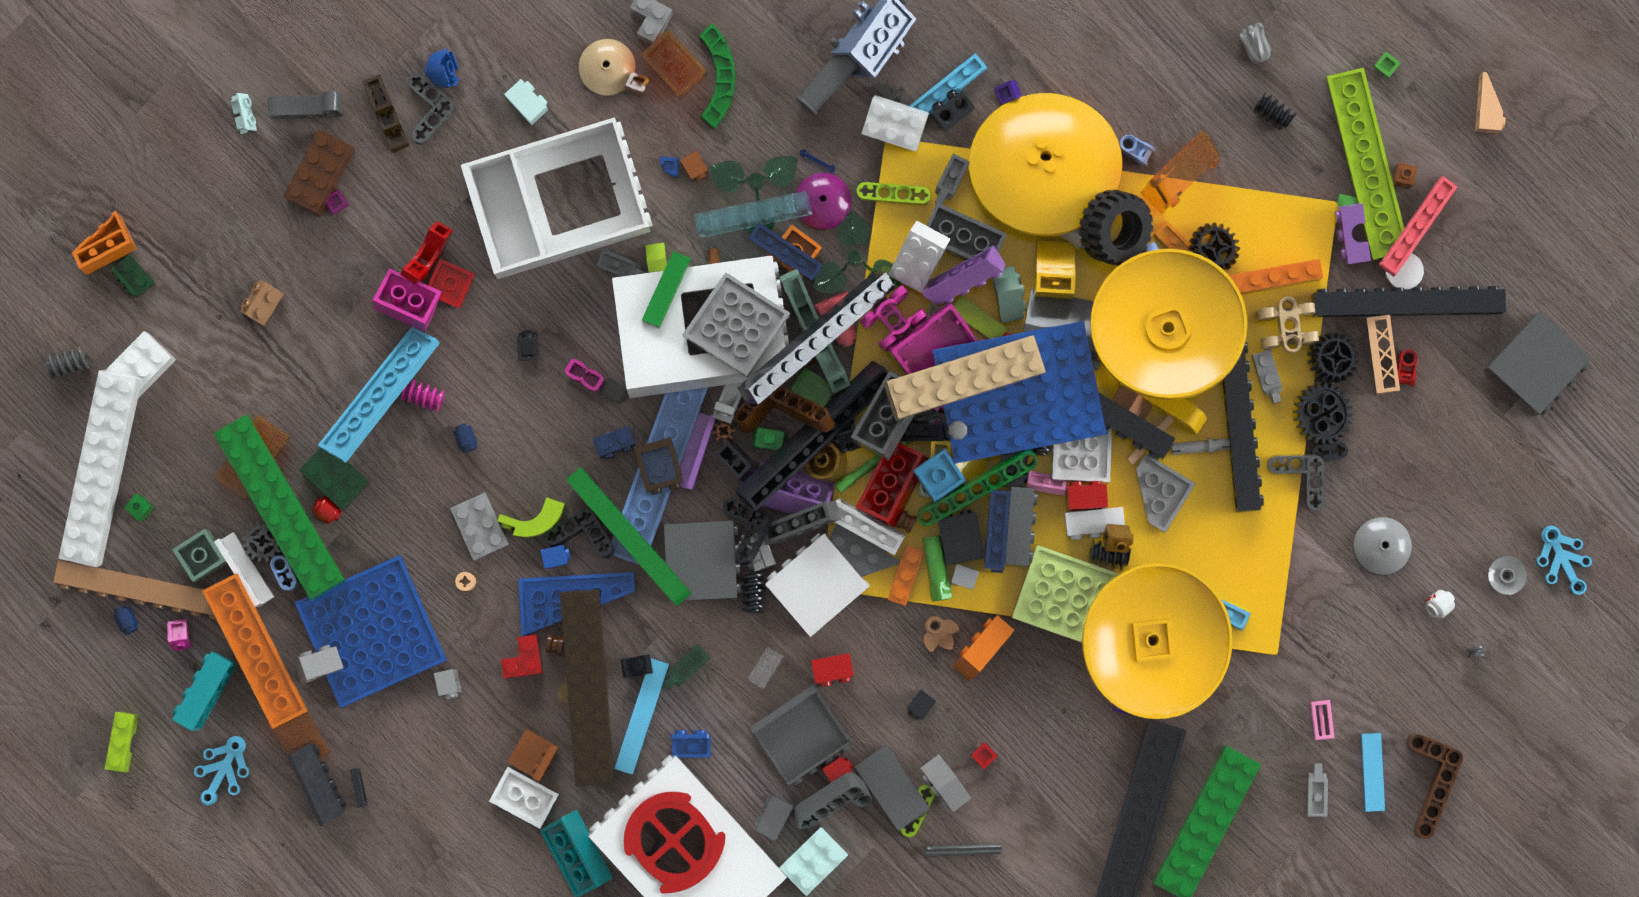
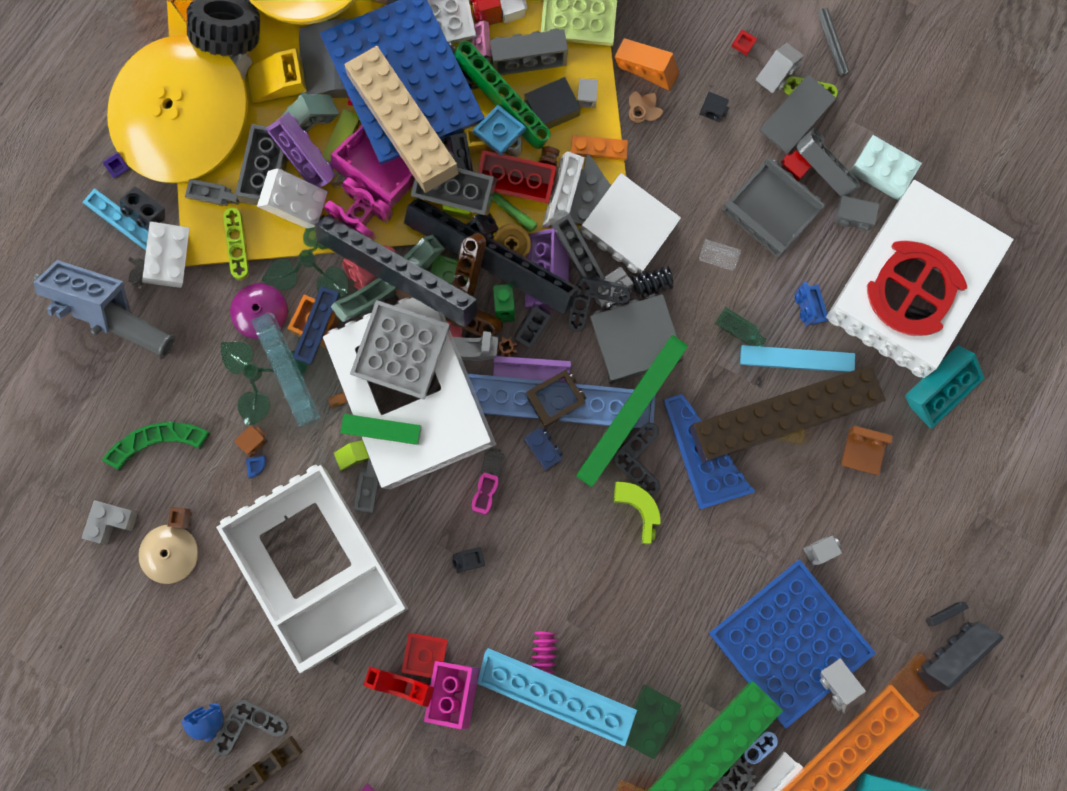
camera: 110 degrees left, 5 degrees down
(224, 767) = (967, 756): medium azure plant -> none
(325, 510) = (685, 721): red head -> none
(465, 438) = (576, 598): dark blue brick -> none
(469, 581) = (714, 562): light nougat wheel -> none
(479, 526) = (659, 562): light grey plate -> none
(524, 797) = (908, 450): white plate -> none
(526, 101) = (220, 625): light aqua brick -> none
(529, 661) = (781, 480): red brick -> none
(555, 557) = (669, 478): blue brick -> none
(555, 644) = (753, 457): reddish brown wheel -> none
(636, 666) = (752, 373): black bracket -> none
(674, 64) = (151, 485): clear orange brick -> none
(831, 168) = (224, 310): clear blue hinge -> none
(832, 669) = (709, 183): red brick -> none
(939, 583) = (598, 114): bright green piece -> none
(957, 430) = (452, 119): light grey tile -> none
(997, 531) = (540, 62): dark blue panel -> none
(1137, 150) = (146, 33): light blue piece -> none

